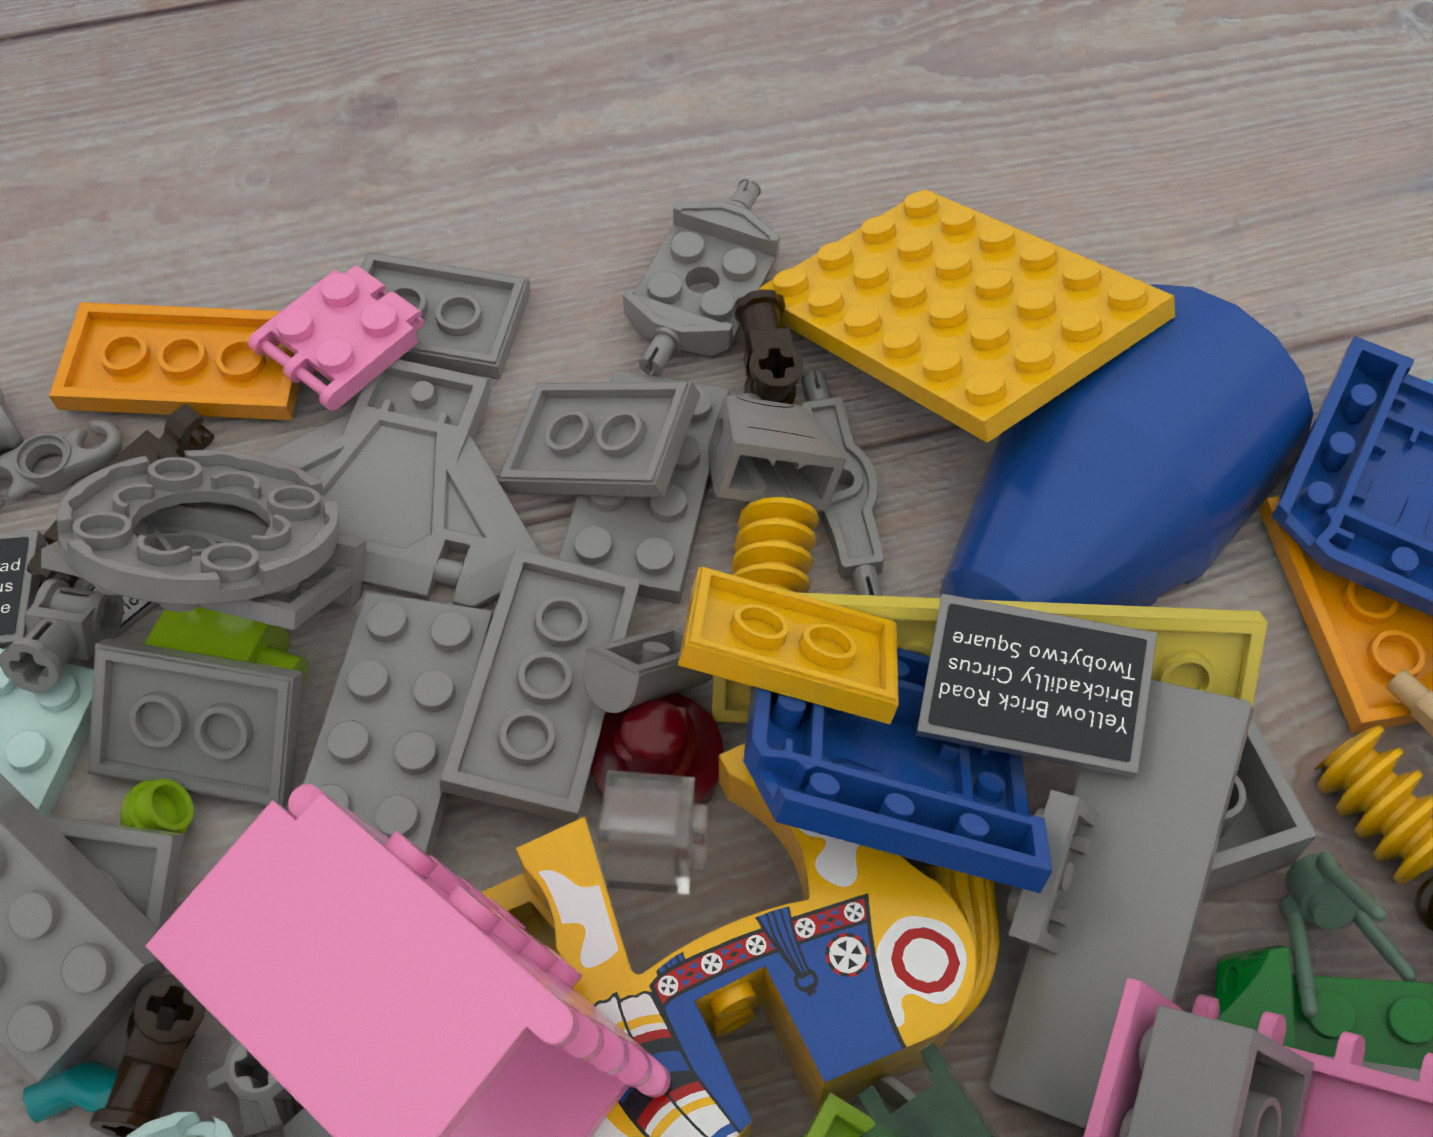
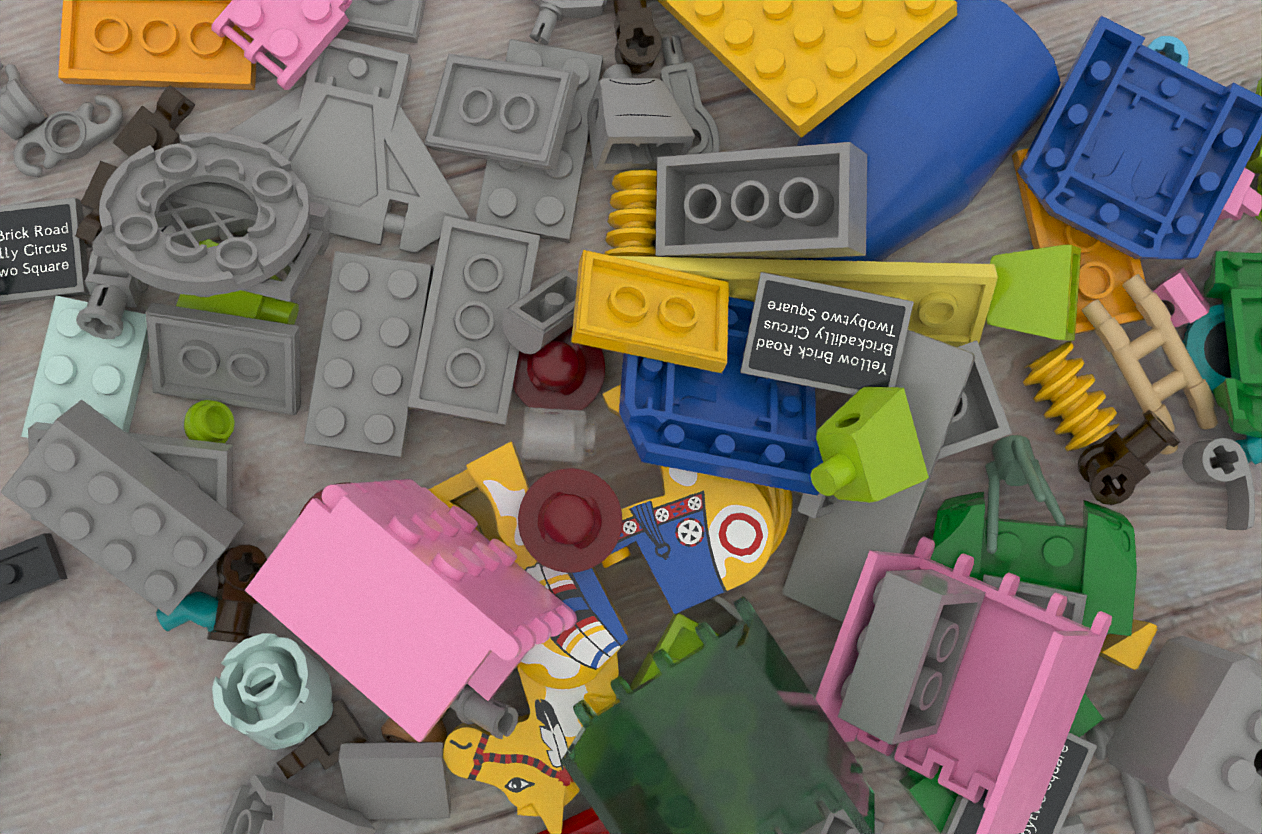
camera: 10 degrees left, 25 degrees up
(666, 927) = (570, 520): none -> dark red plate
(944, 521) = (763, 203): none -> light grey brick
(1114, 824) = (869, 448): none -> lime torso
(1322, 659) = (1037, 291): none -> lime torso

